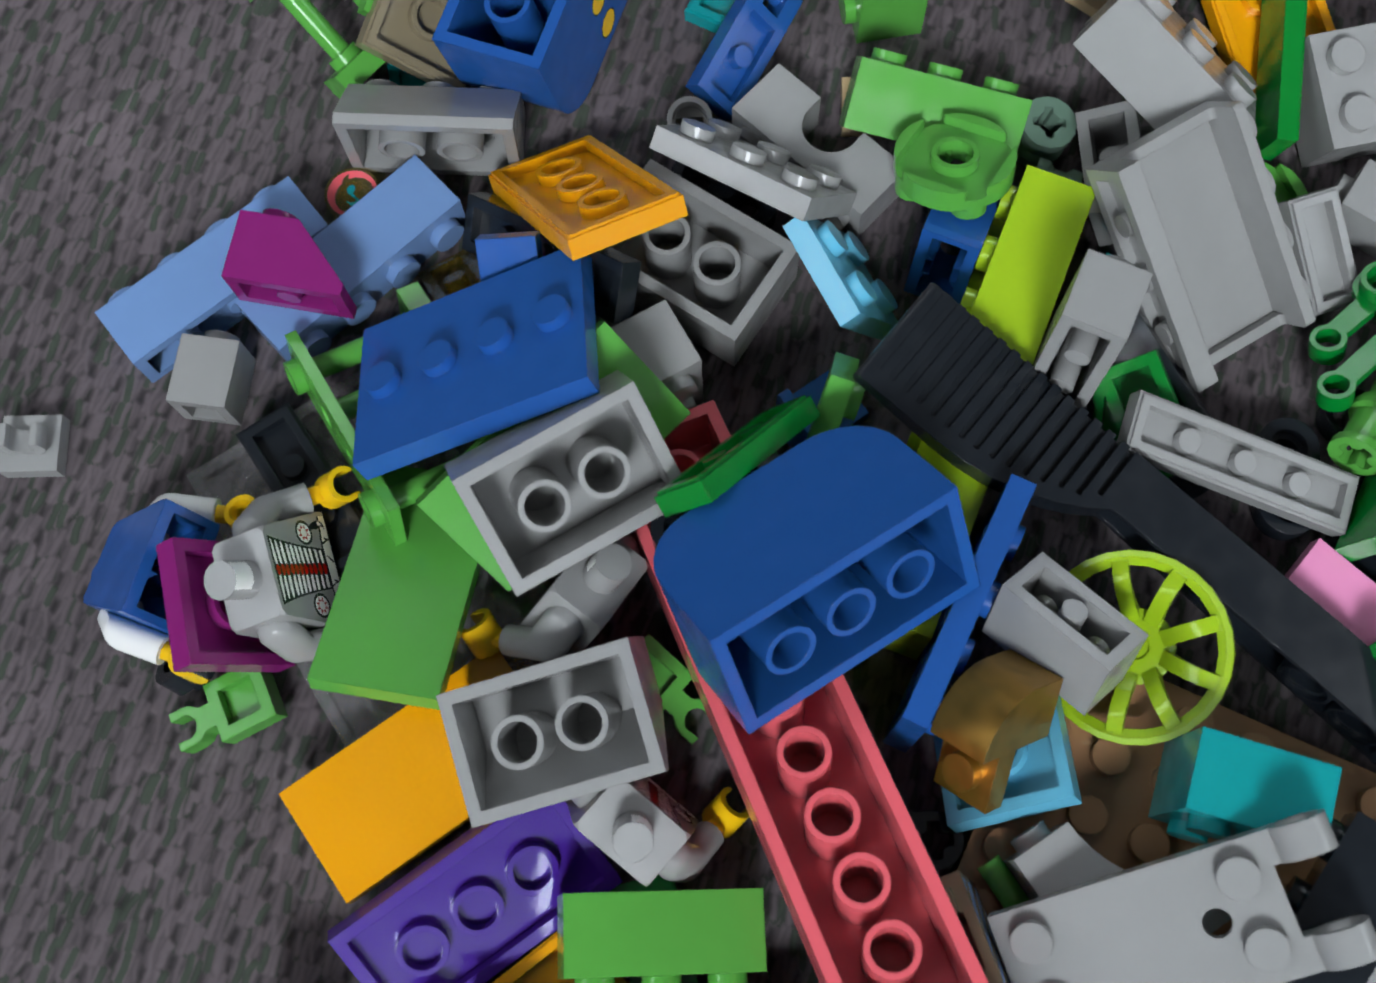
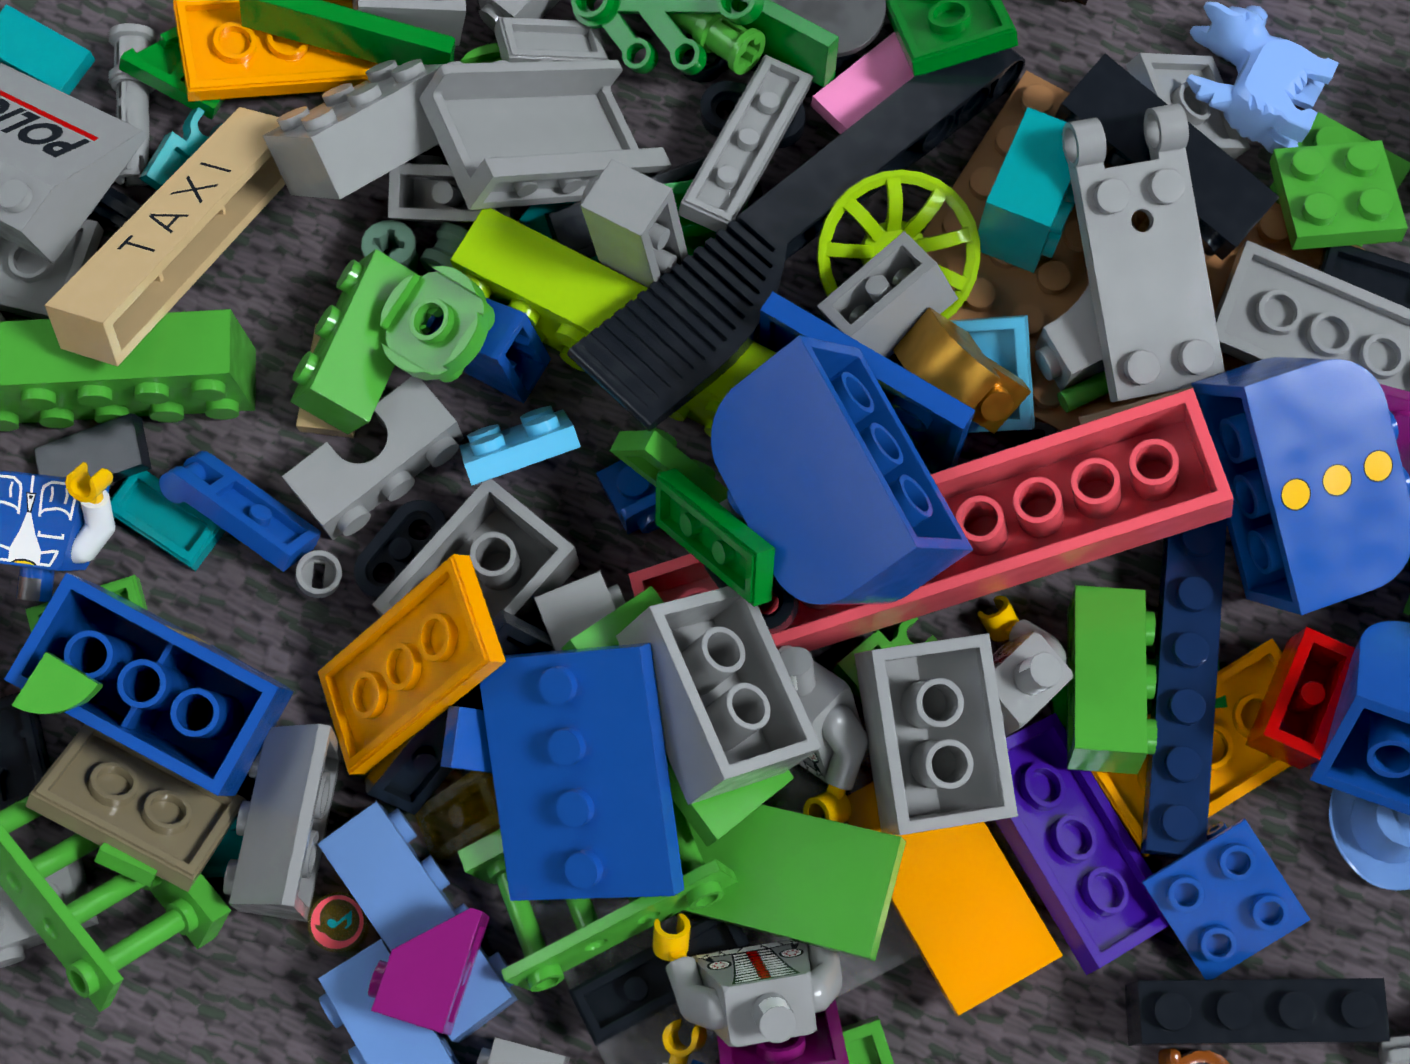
camera: 85 degrees left, 0 degrees up
(755, 170) = (404, 506): light grey plate -> none

